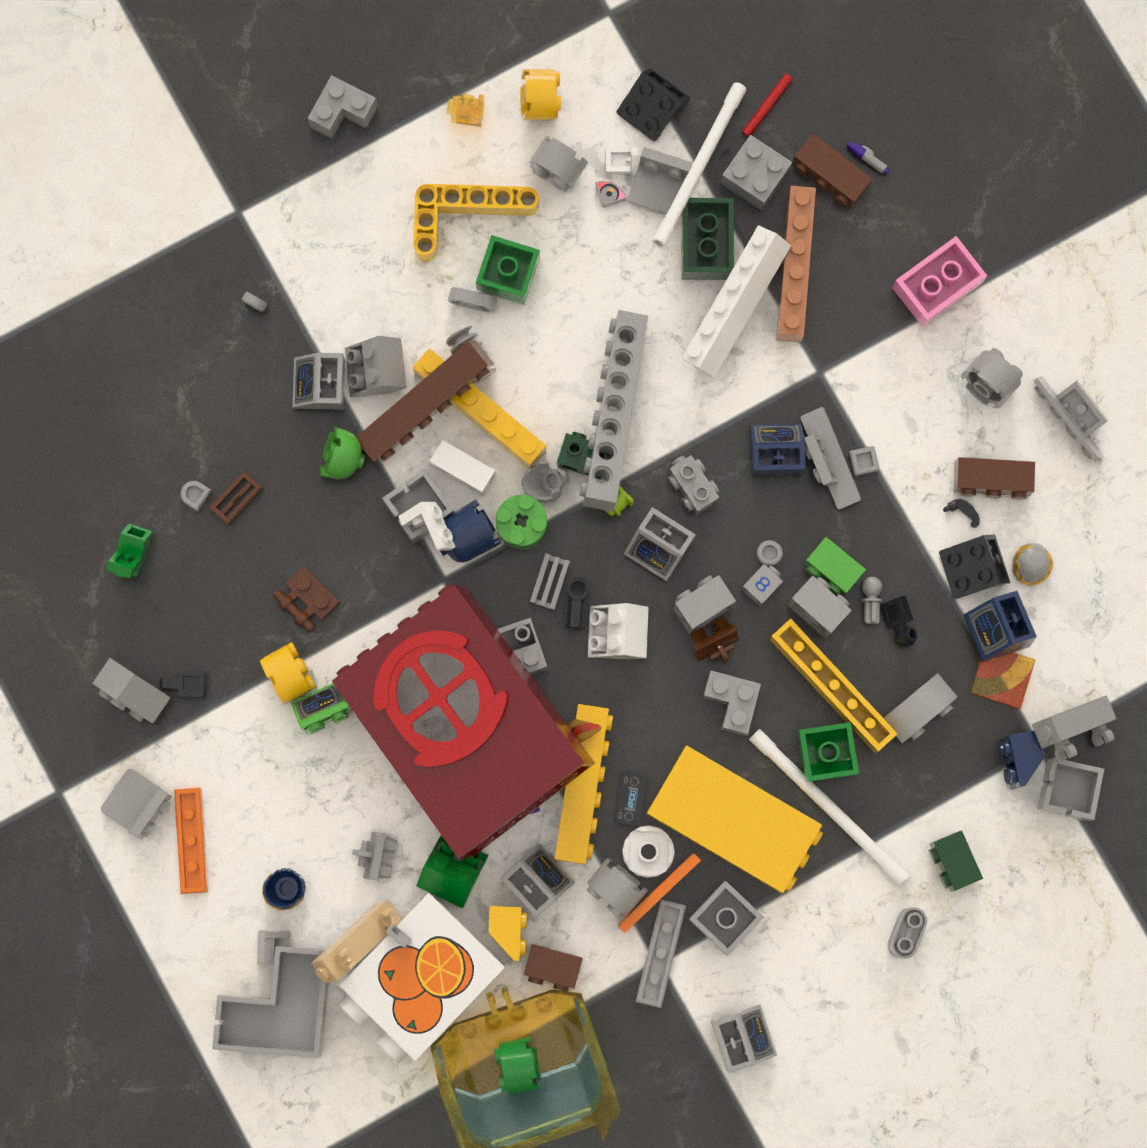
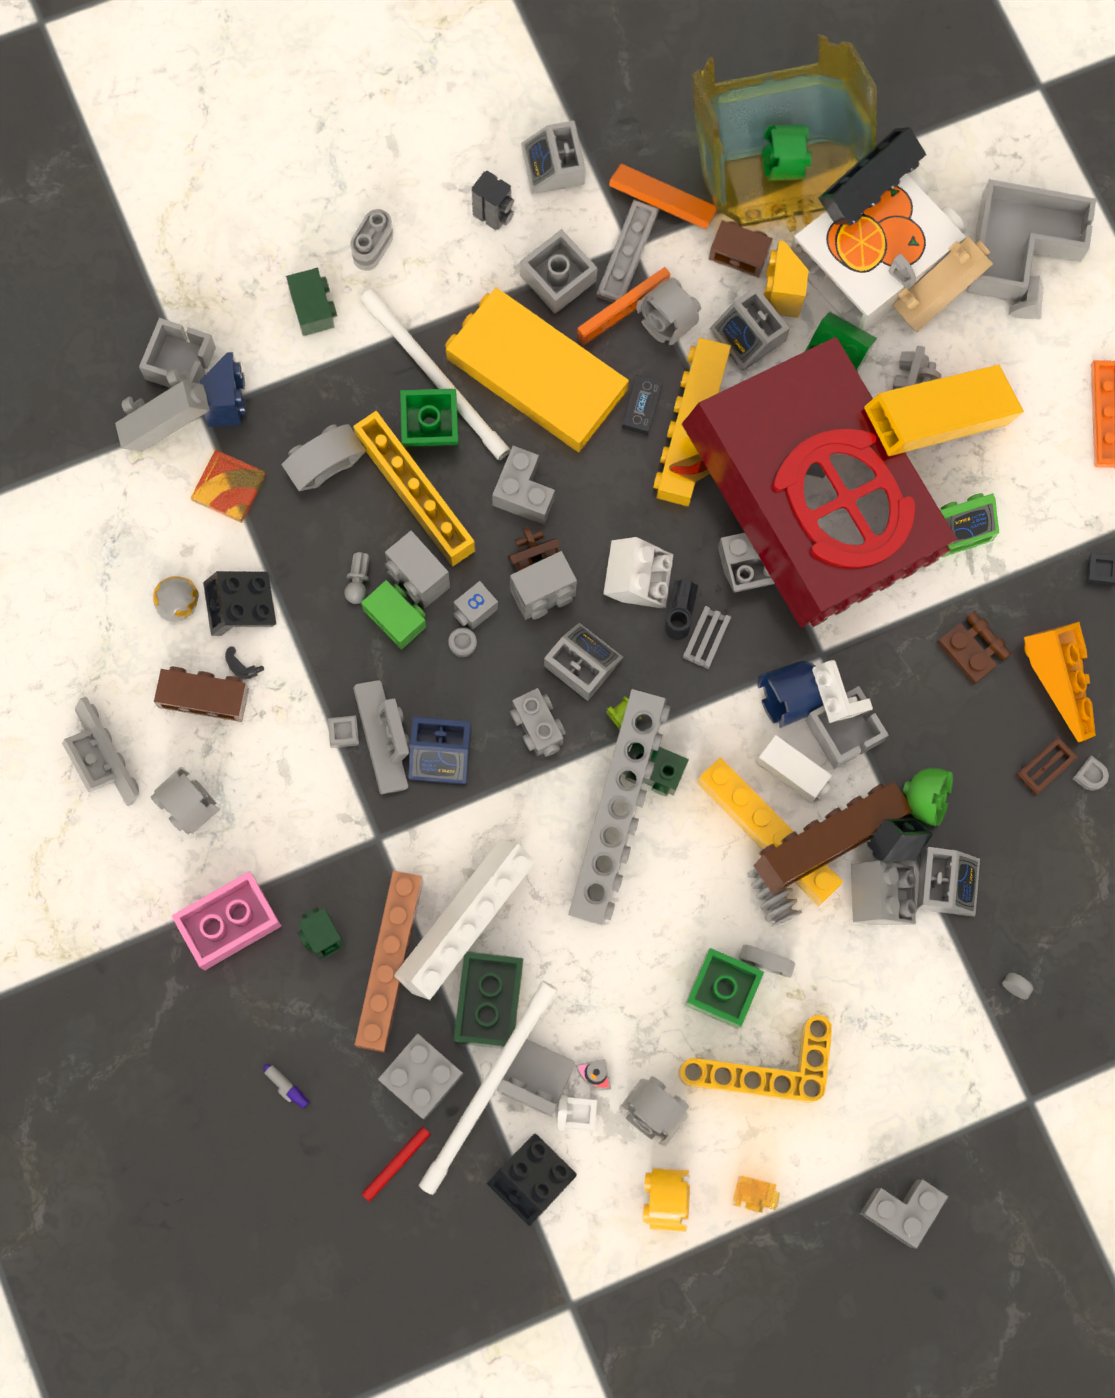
camera: 175 degrees left, 5 degrees down
(228, 587) = (1059, 665): none -> light orange wedge
(283, 889) = (1014, 350): dark blue hair -> none
(287, 673) = (1001, 562): yellow brick -> none
(349, 807) = (943, 409): none -> yellow brick
(366, 408) = (899, 840): none -> black brick
(435, 1029) = (872, 176): none -> black brick
(525, 508) = (740, 685): bright green brick -> none
(544, 482) = (704, 740): light grey hair -> none
(633, 1014) = (663, 196): none -> orange tile
(648, 867) = (630, 336): white tile -> none
(797, 981) = (492, 200): none -> black brick
(831, 171) = (332, 1069): reddish brown brick -> none
(858, 277) = (319, 933): none -> dark green brick
(897, 614) = (331, 558): black plate -> none
(1000, 626) = (223, 529): dark blue slope -> none

